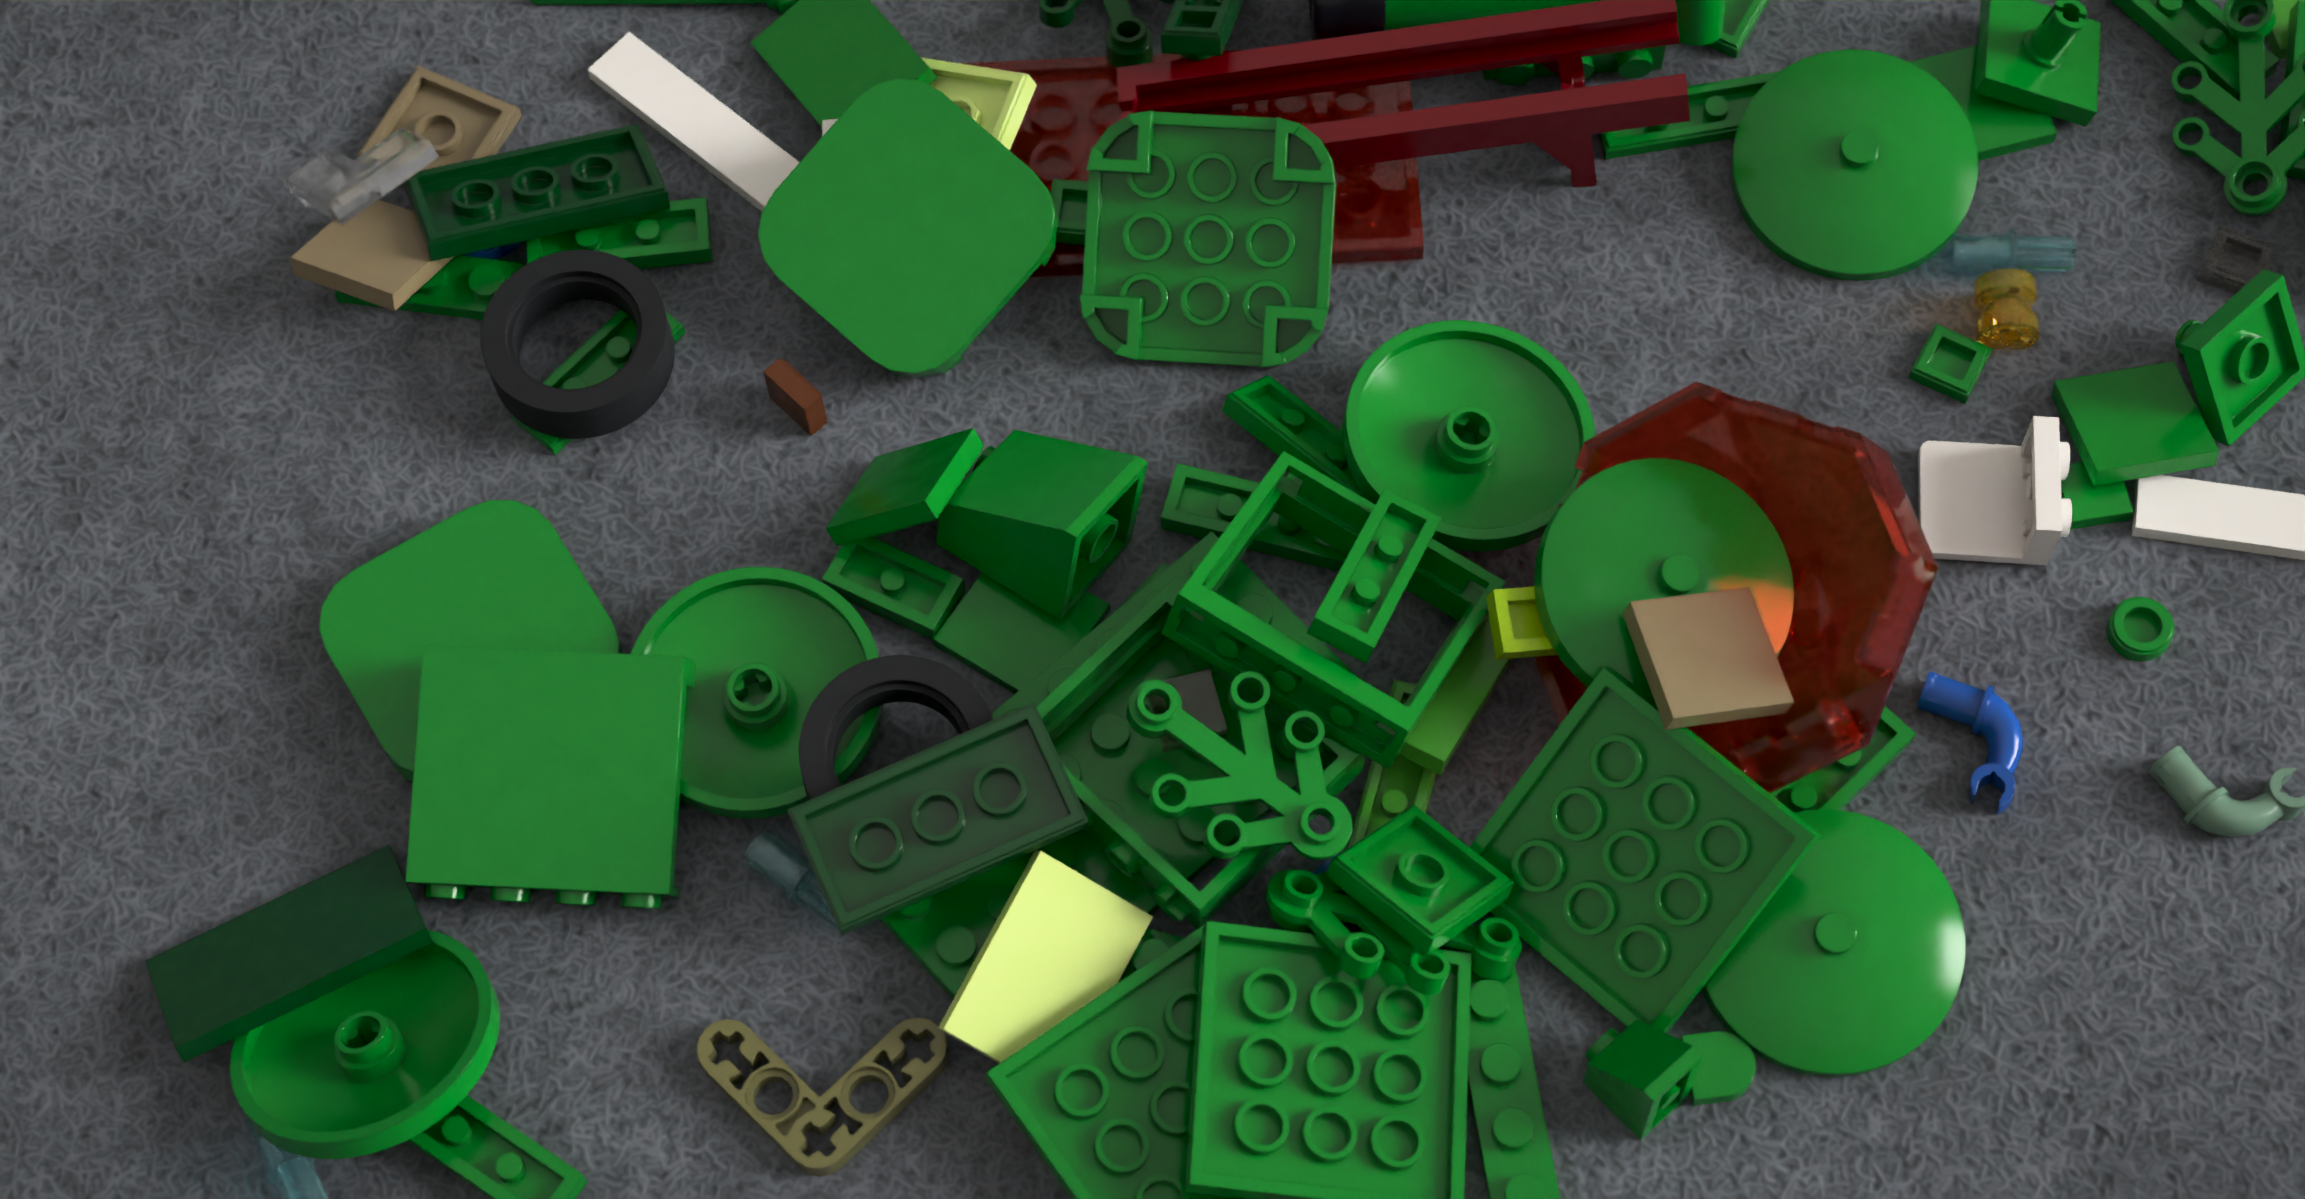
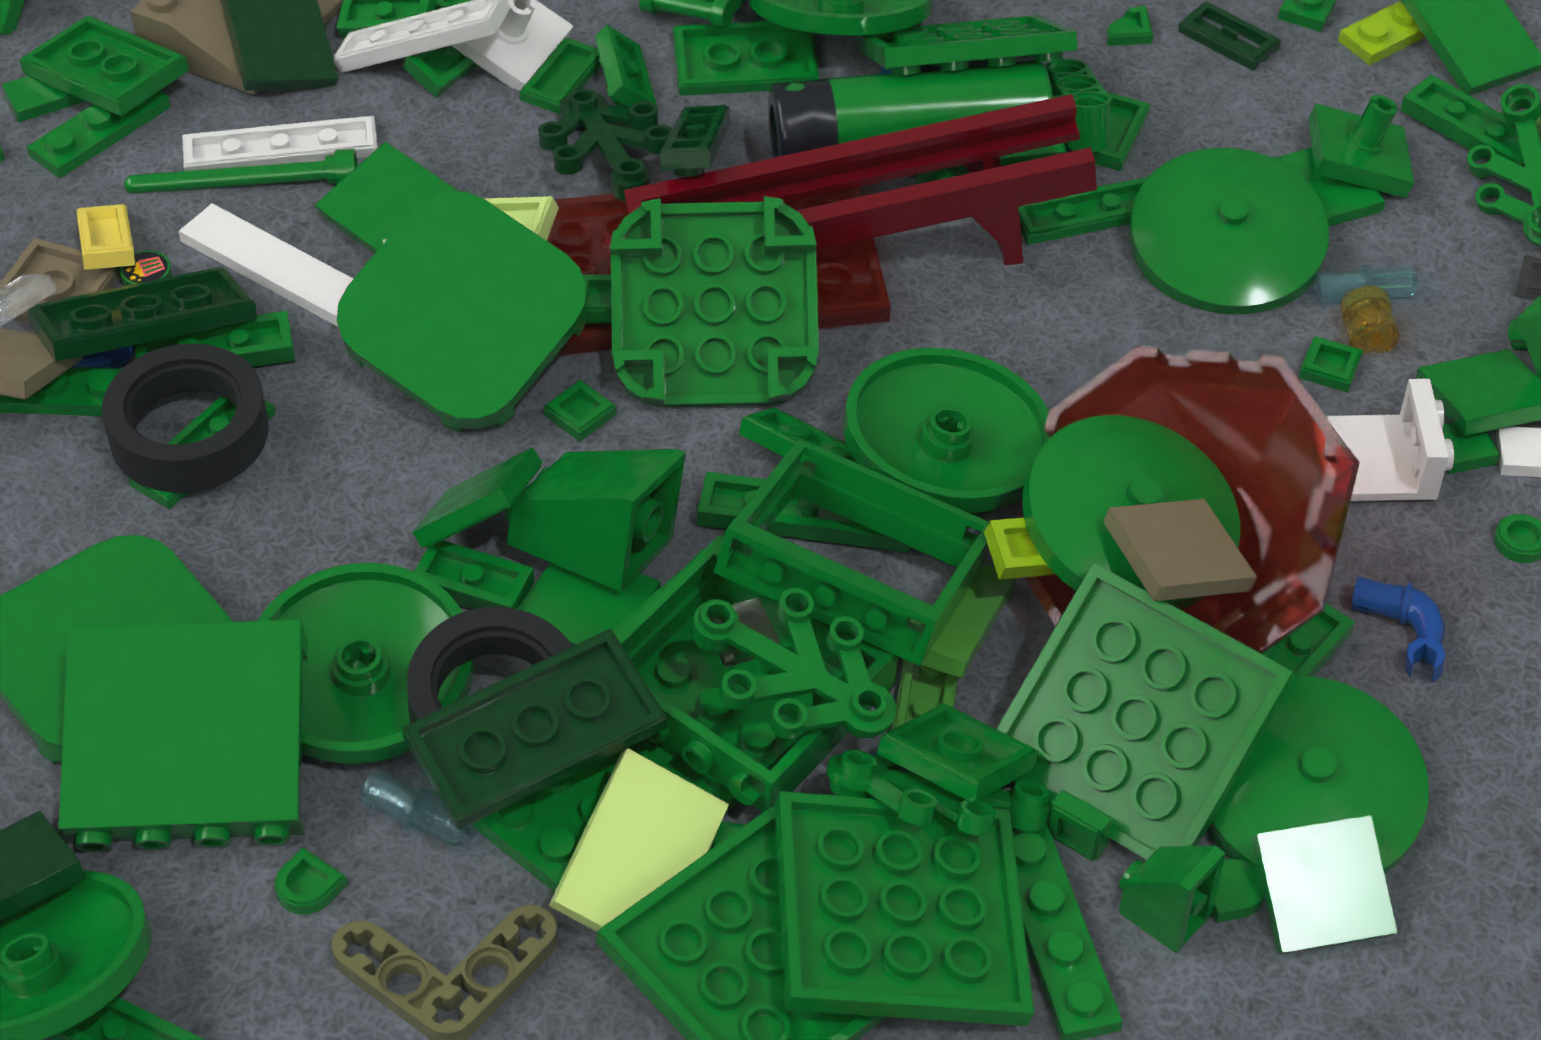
camera: 10 degrees left, 15 degrees down
(500, 73) = (105, 237): none -> light yellow tile
(545, 120) = (148, 266): none -> tile
(677, 962) = (307, 883): none -> green tile
(795, 396) = (375, 446): reddish brown tile -> none
(1039, 358) = (579, 410): none -> green tile
(1374, 576) = (889, 514): green plate -> none
(1550, 975) = (1079, 825): none -> green tile
(1821, 1078) = (1324, 884): none -> tile

